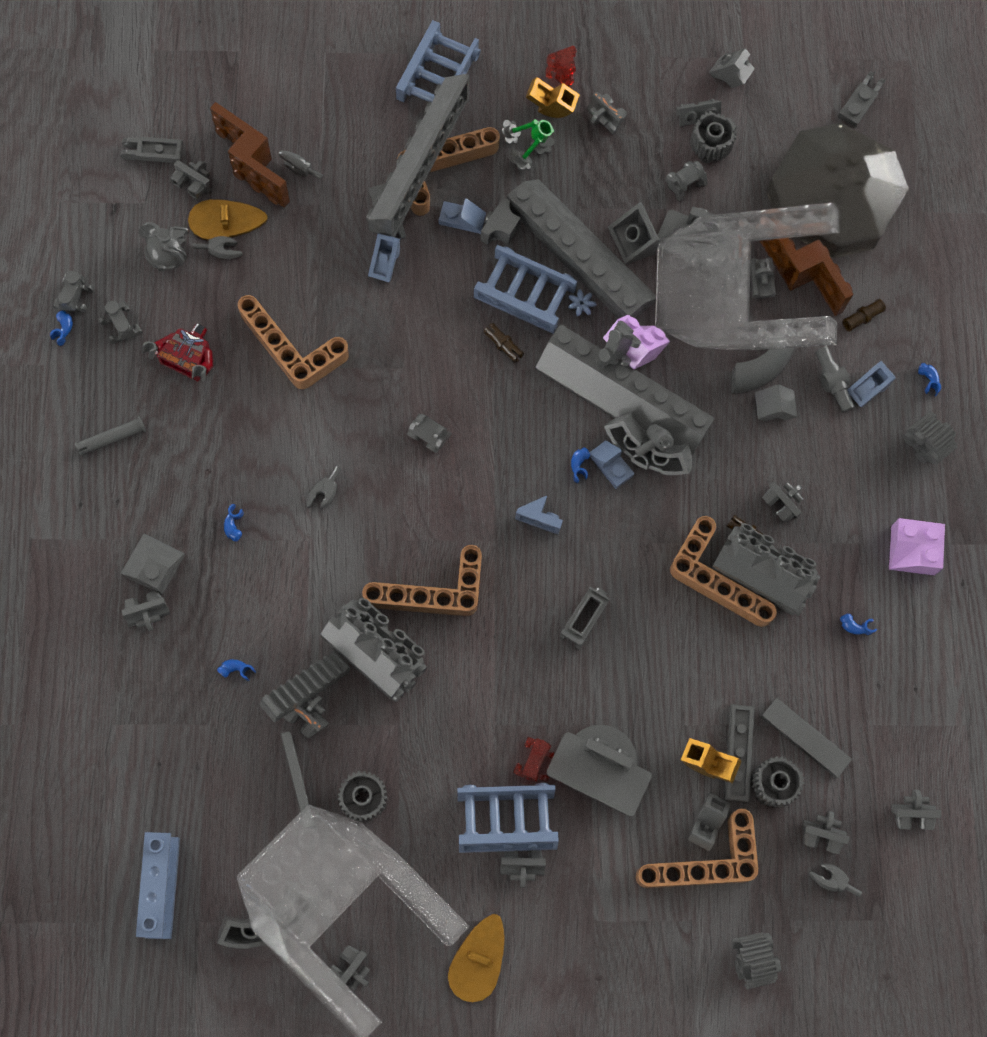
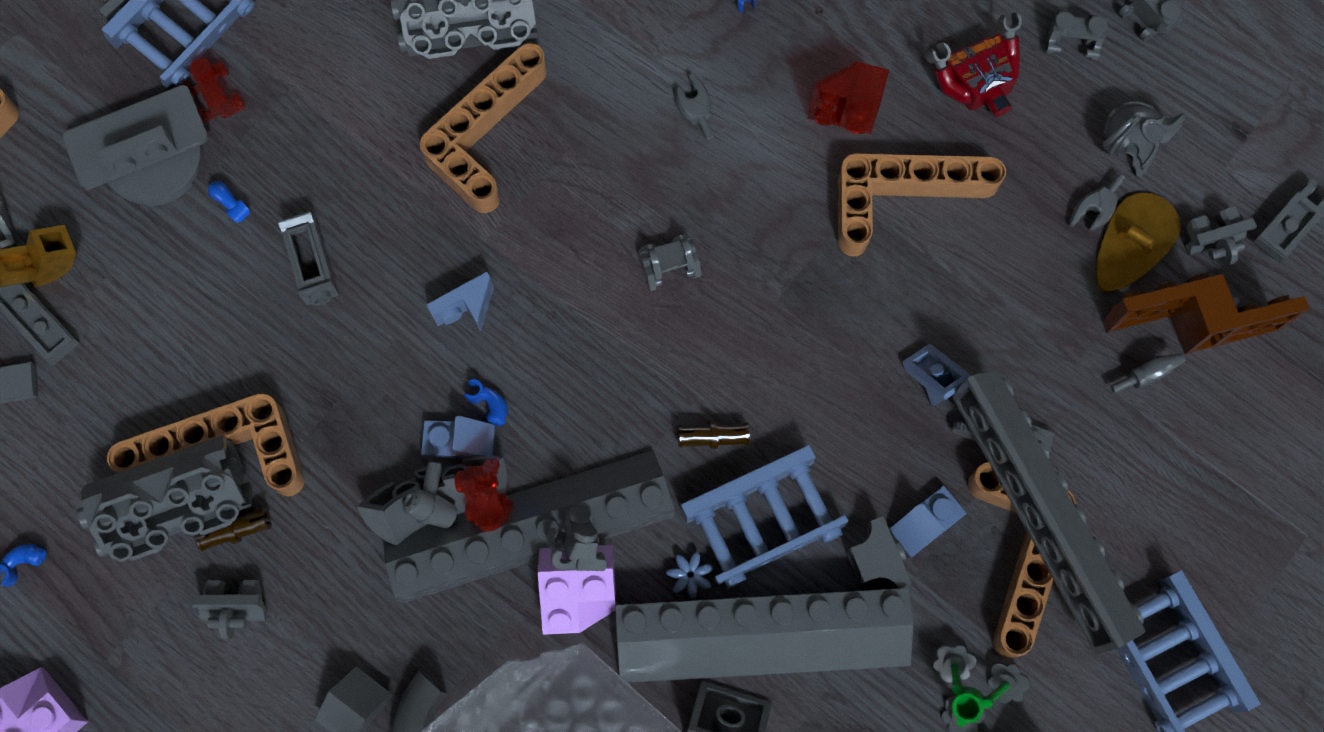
camera: 135 degrees right, 0 degrees up
(260, 402) = (849, 98): none -> clear red slope
(589, 699) = (235, 208): none -> blue arm
(632, 413) = (483, 502): none -> clear red piece

